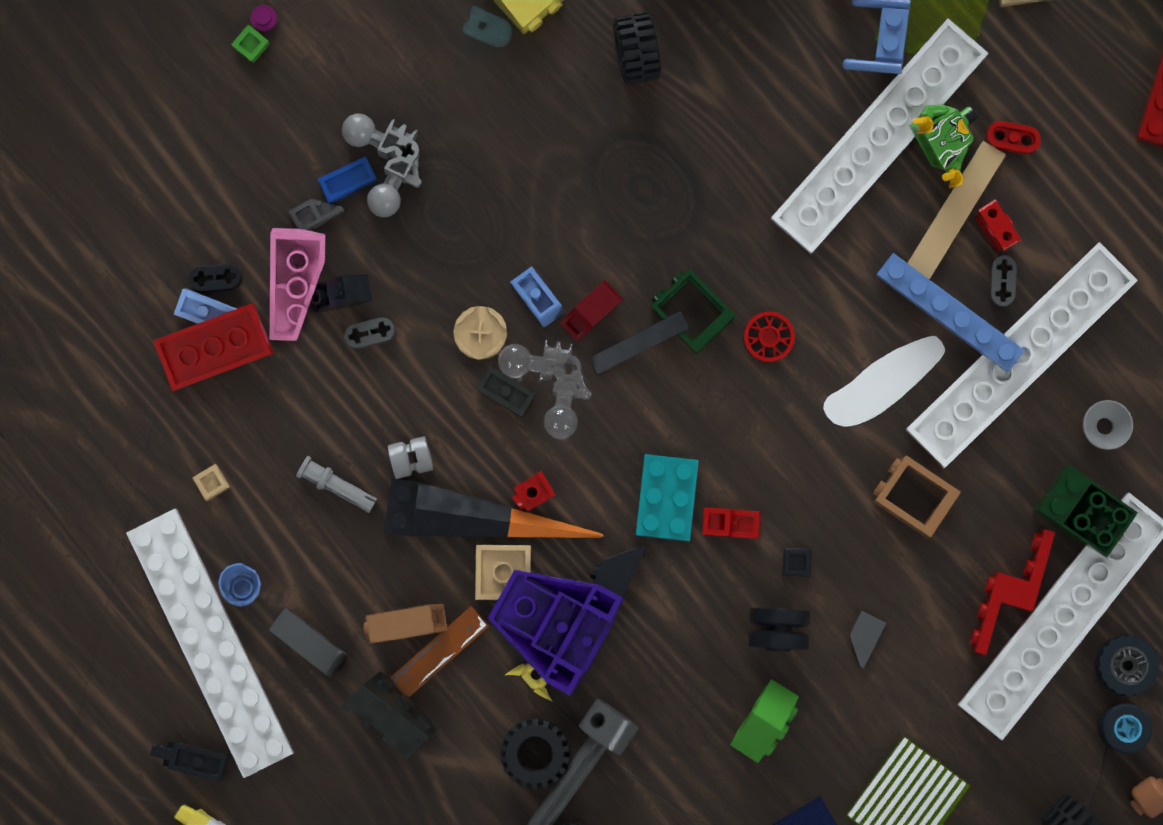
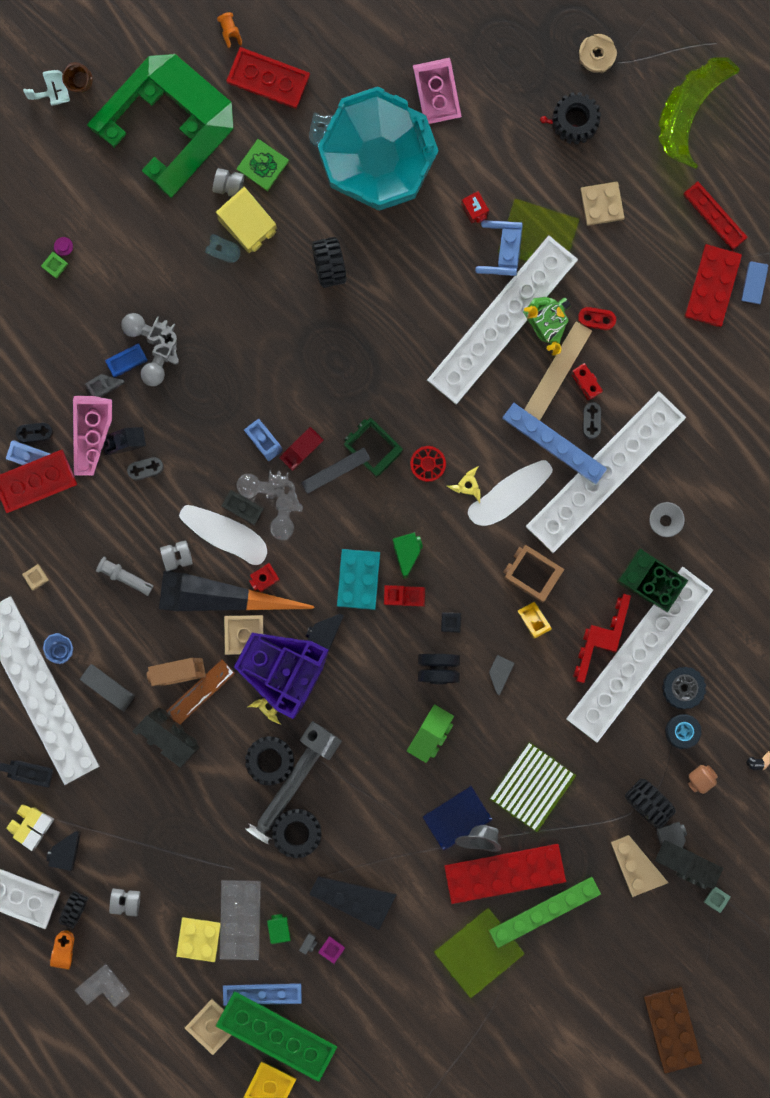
camera: 10 degrees left, 0 degrees up
(480, 332) = (223, 466): tan tile -> none
(480, 428) = (225, 533): none -> white sticker
(737, 461) = (407, 552): none -> green slope
(815, 370) = (469, 477): none -> light yellow piece
(916, 563) = (534, 620): none -> yellow slope

